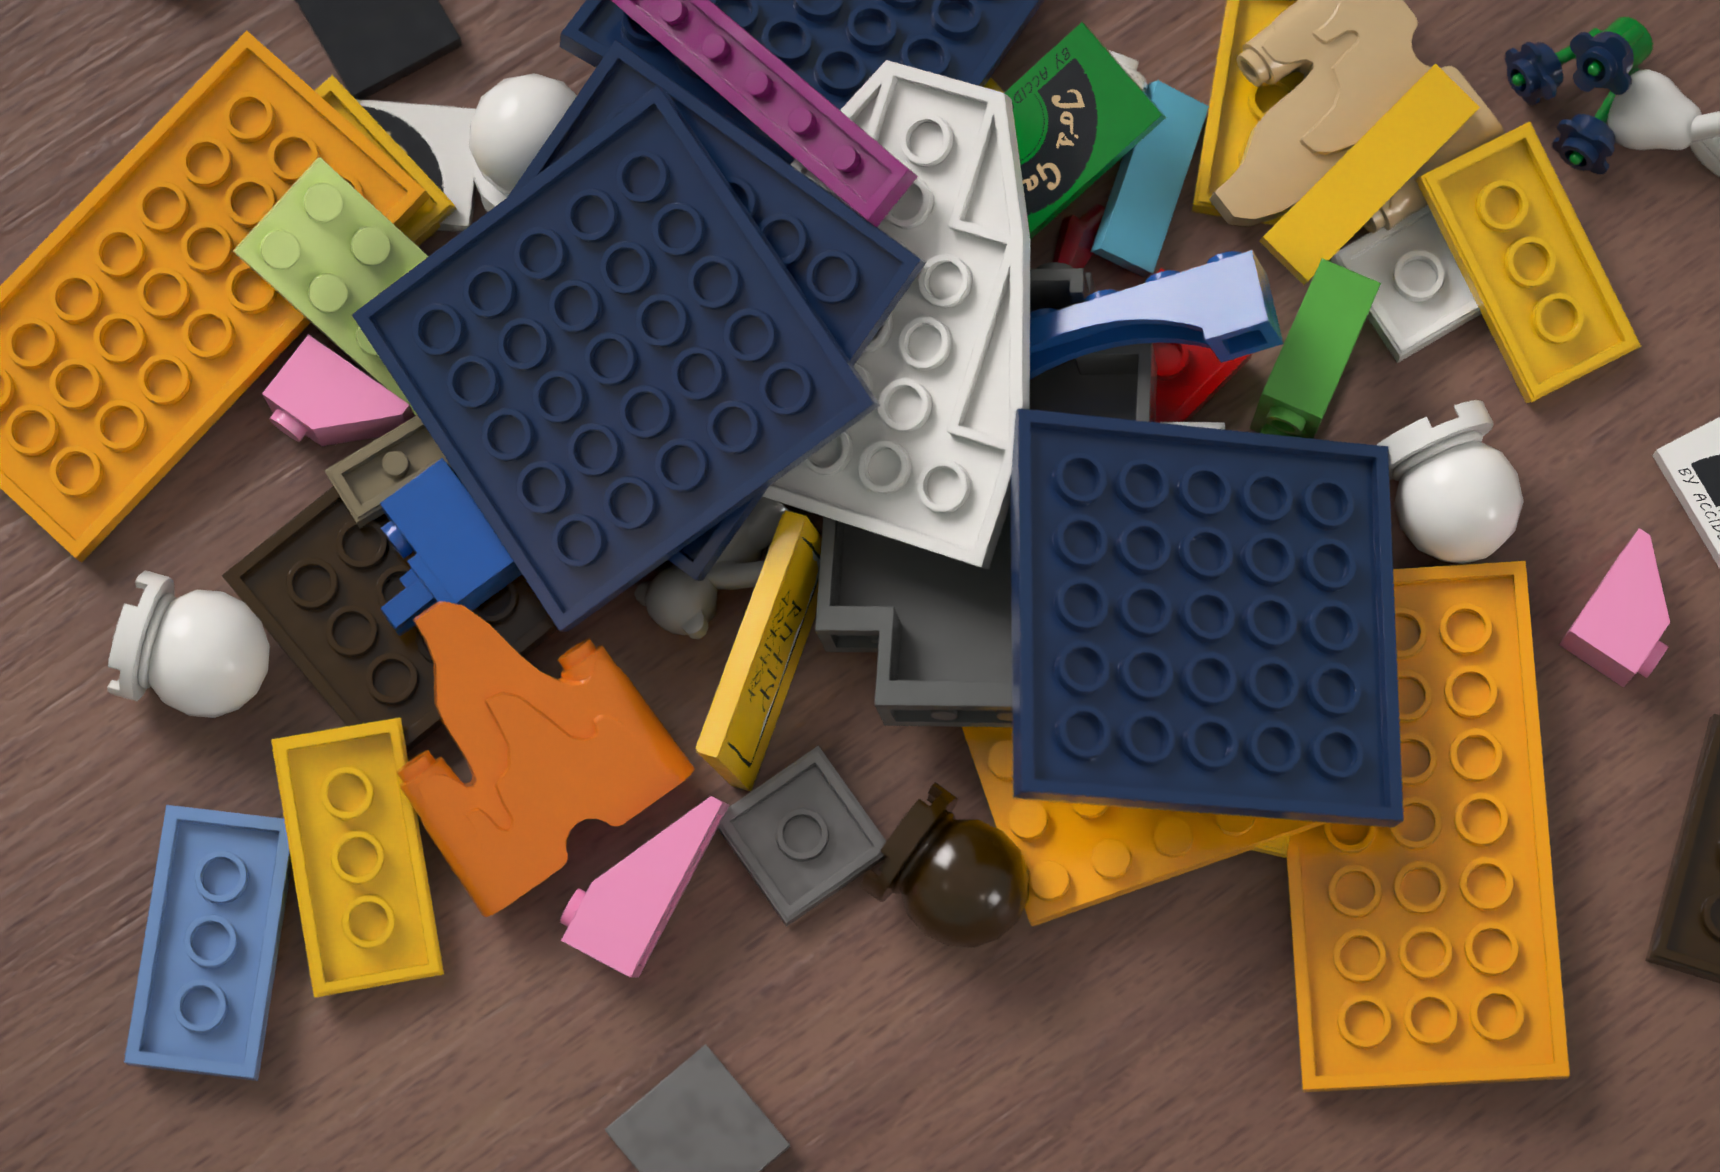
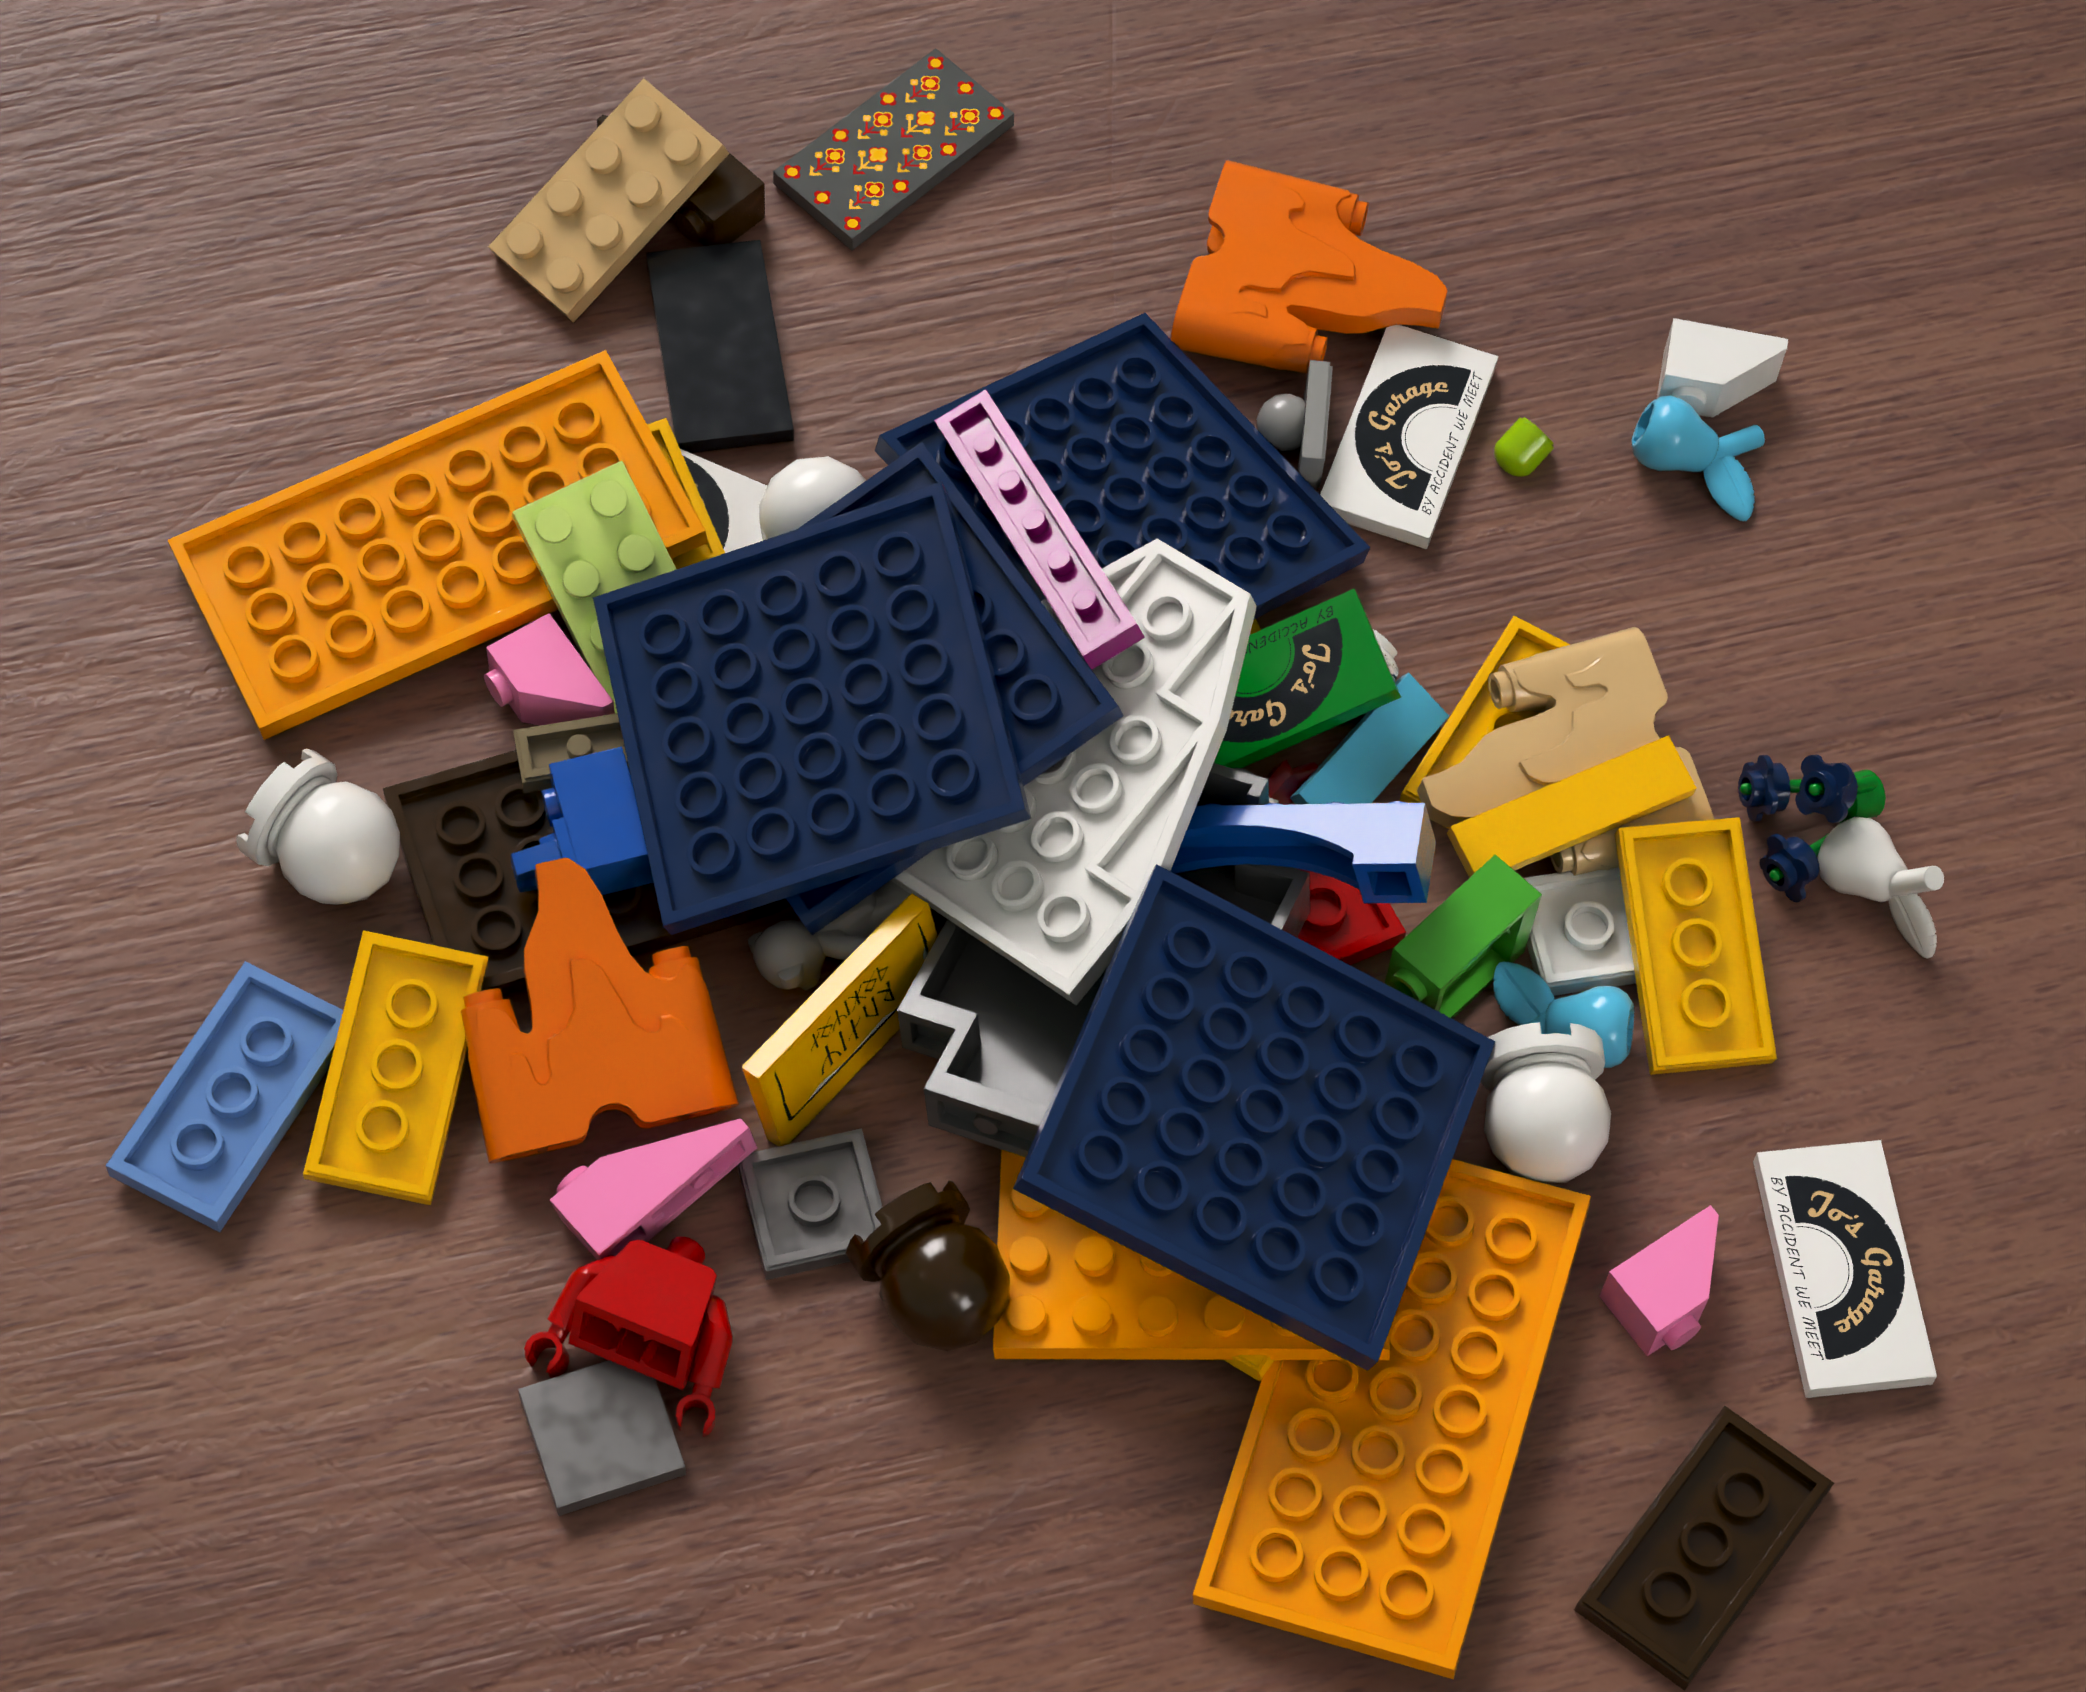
camera: 15 degrees right, 15 degrees down
(698, 1015) = (649, 1315): none -> red torso
(1455, 376) = (1605, 1009): none -> medium azure piece

